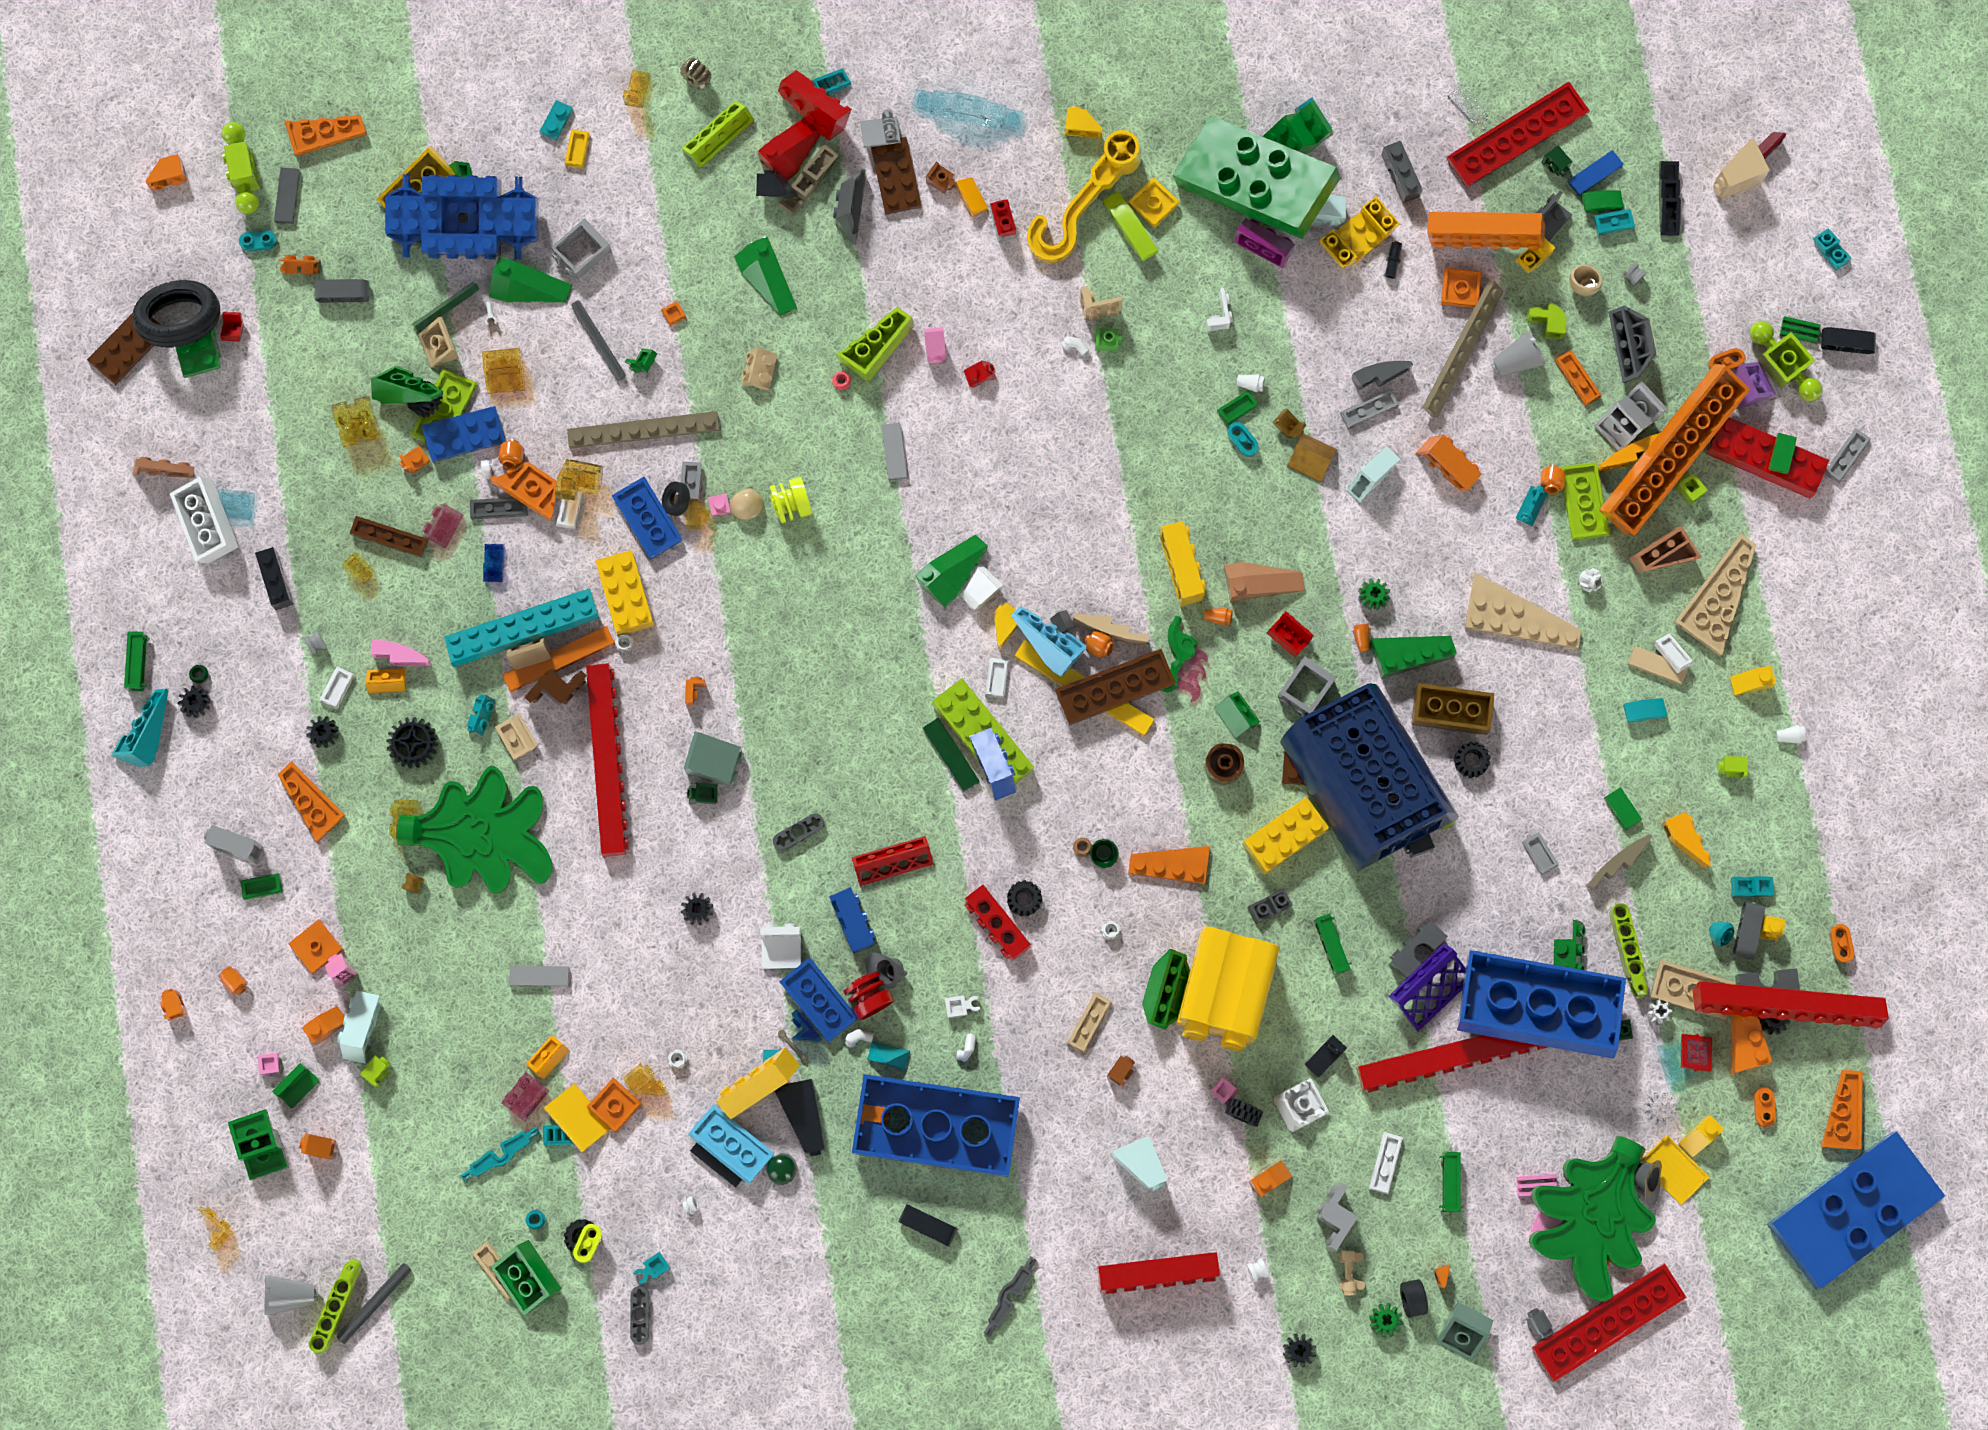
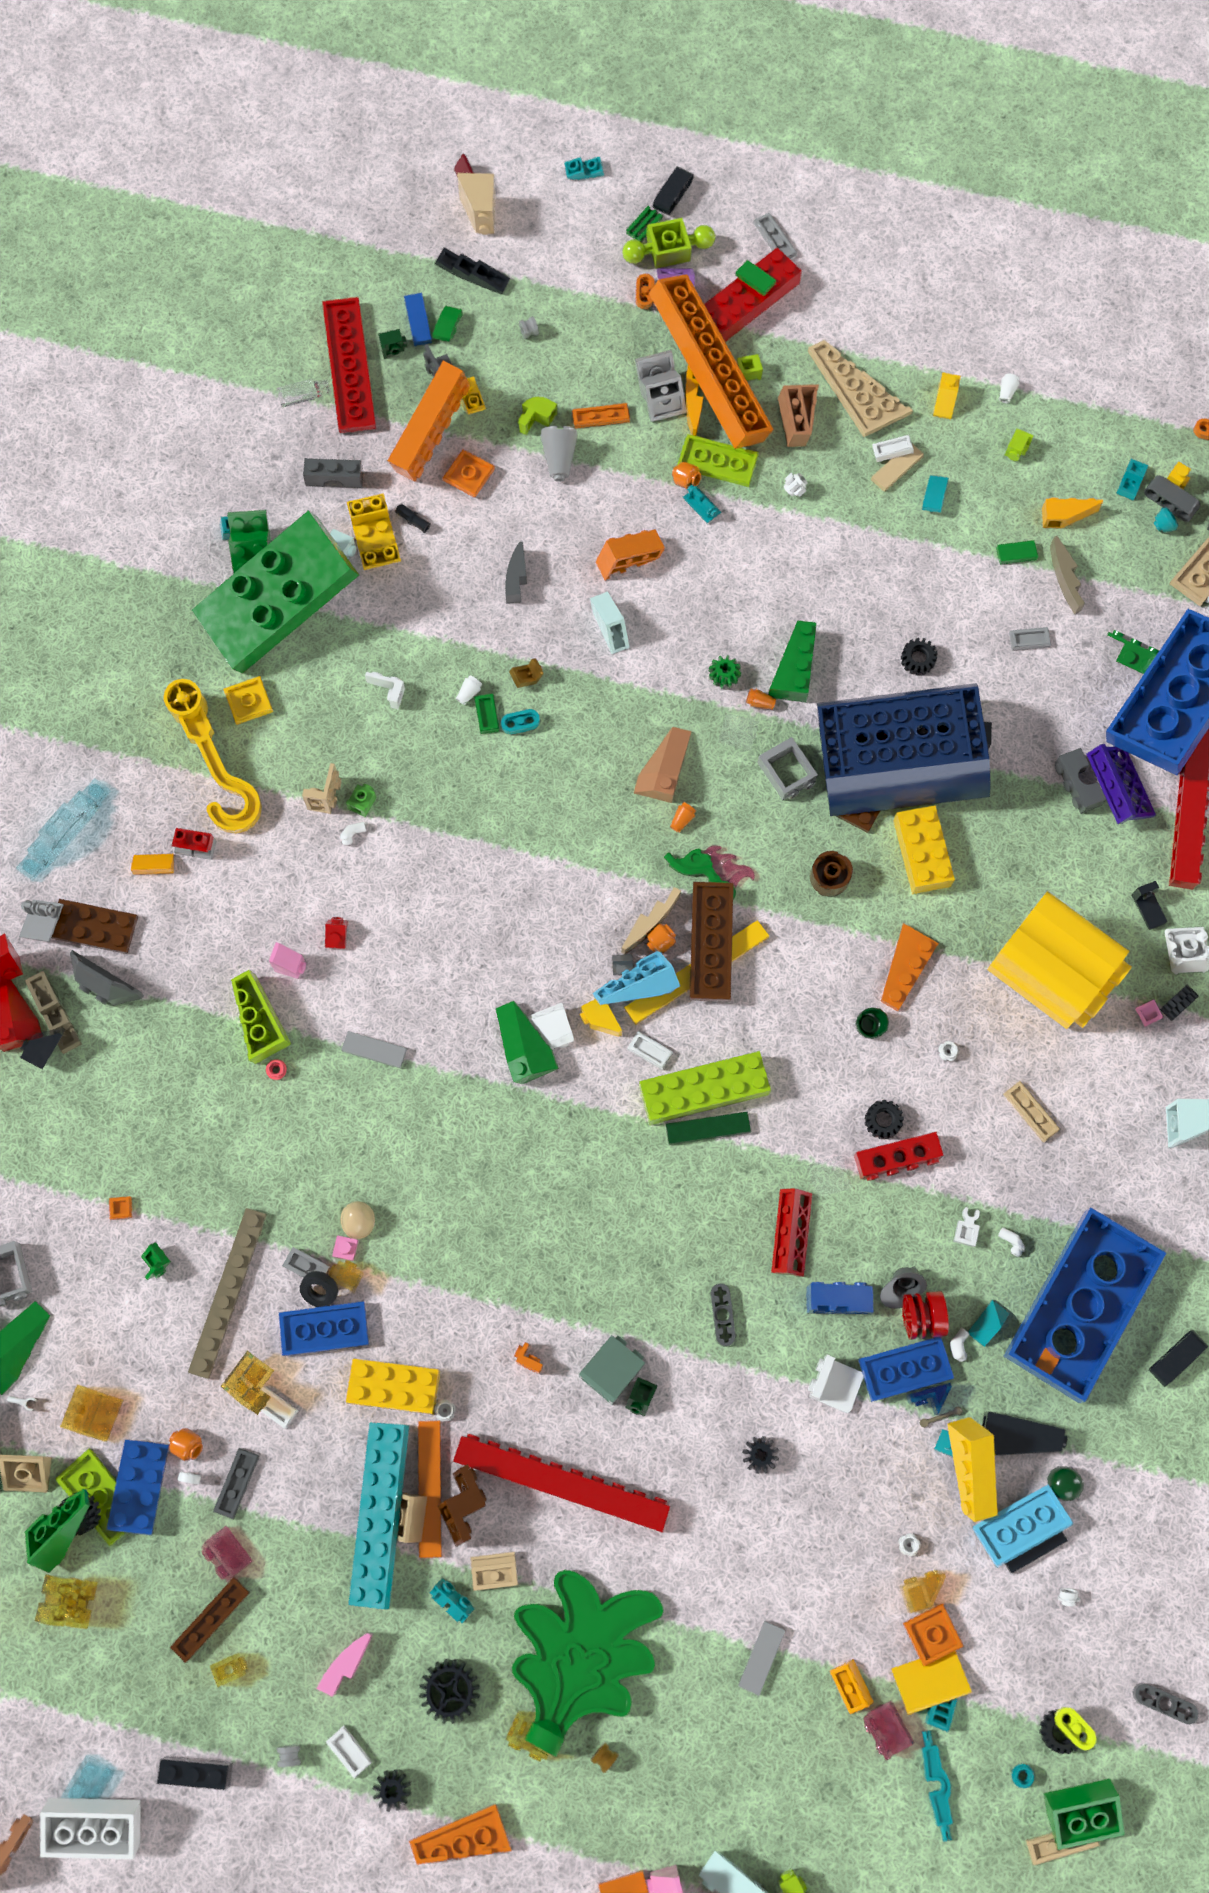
camera: 65 degrees left, 5 degrees down
(386, 680) = (366, 1691): light orange slope -> none
(414, 460) = (139, 1554): orange bracket -> none
(493, 562) = (293, 1514): clear blue slope -> none
(529, 487) = (232, 1439): orange wing -> none
(598, 340) = (109, 1298): dark grey axle -> none
(654, 1266) = (1121, 1664): teal plate -> none
(759, 368) = (223, 1146): tan bracket -> none
(762, 270) = (121, 1097): green wedge -> none
(790, 500) = (377, 1176): neon yellow wheel -> none
(942, 185) = (119, 890): dark orange brick -> none
(993, 762) = (743, 1084): wedge -> none
(1077, 843) = (861, 1040): medium nougat plate -> none
(1081, 123) = (135, 730): yellow slope -> none
(1121, 1070) = (1092, 1100): dark orange brick -> none
(1130, 226) = (261, 729): lime slope -> none
(1166, 989) = (1030, 1024): green wedge -> none
(1182, 564) = (618, 825): yellow brick -> none
(1236, 714) = (786, 843): panel -> none
(1264, 242) = (340, 618): magenta slope -> none
(1270, 906) = (983, 894): dark grey slope -> none
(1290, 634) = (730, 761): red bracket -> none
(1311, 457) = (567, 669): pearl gold slope -> none
(1332, 944) = (1045, 854): green container -> none
(1369, 409) = (544, 600): light grey tile -> none
(1452, 709) = (865, 650): pearl gold brick -> none
(1463, 349) = (528, 496): dark tan plate -> none
(1507, 614) = (793, 569): tan wing -> none
(1585, 280) = (515, 367): tan hat -> none
(1614, 222) = (471, 323): teal plate -> none
(1626, 921) = (1142, 605): lime piece -> none
(1632, 342) = (593, 352): dark grey wedge -> none

